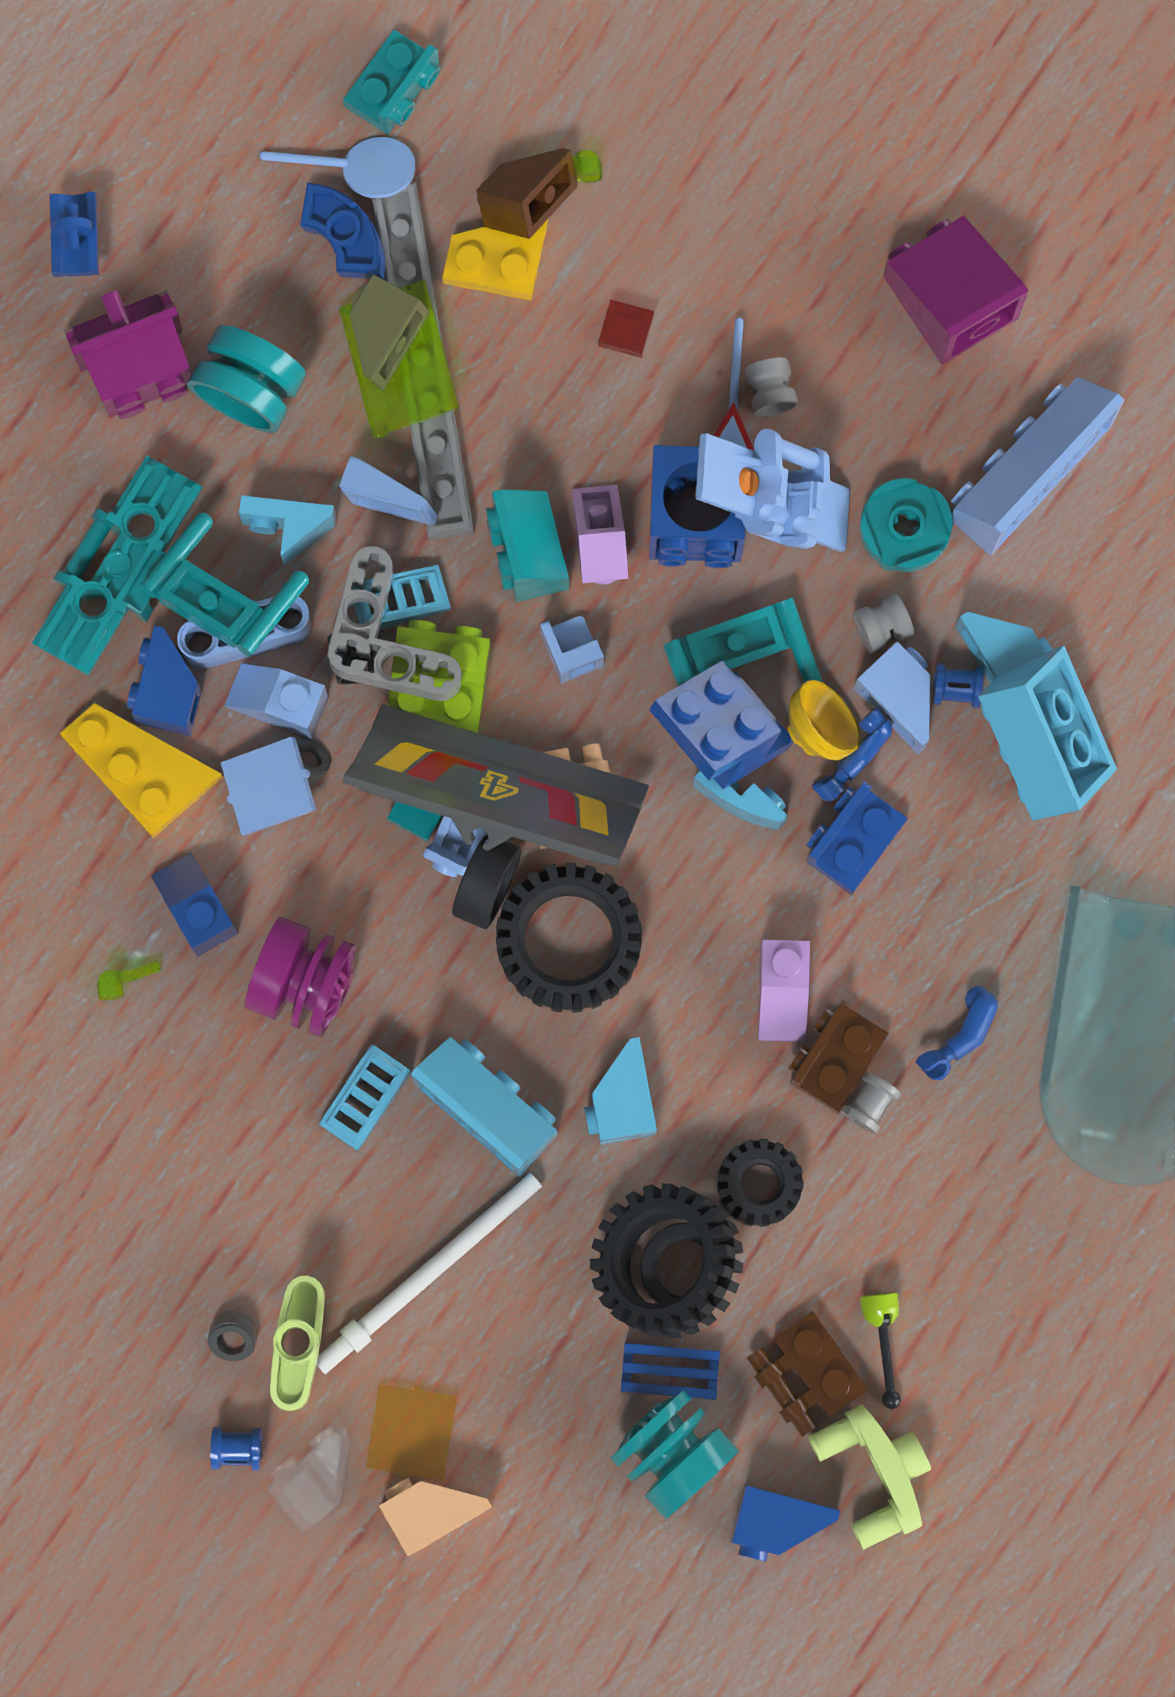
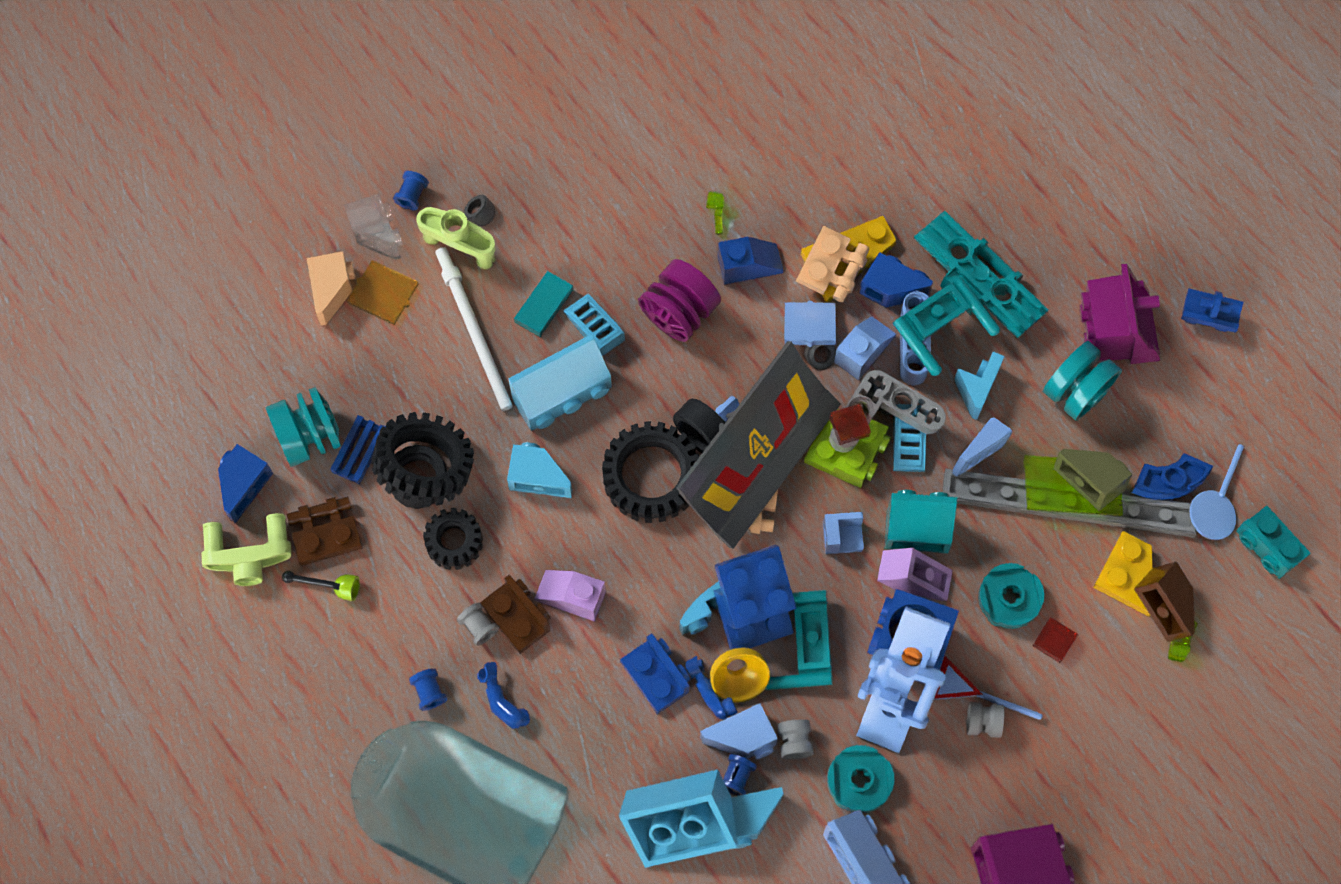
camera: 110 degrees right, 10 degrees down
(166, 791) = (824, 259): none -> light nougat plate
(355, 1183) = (543, 303): none -> teal tile
(427, 669) = (850, 424): none -> clear red tile
(593, 376) = (1021, 581): none -> teal plate
(986, 1137) = (428, 689): none -> blue bush

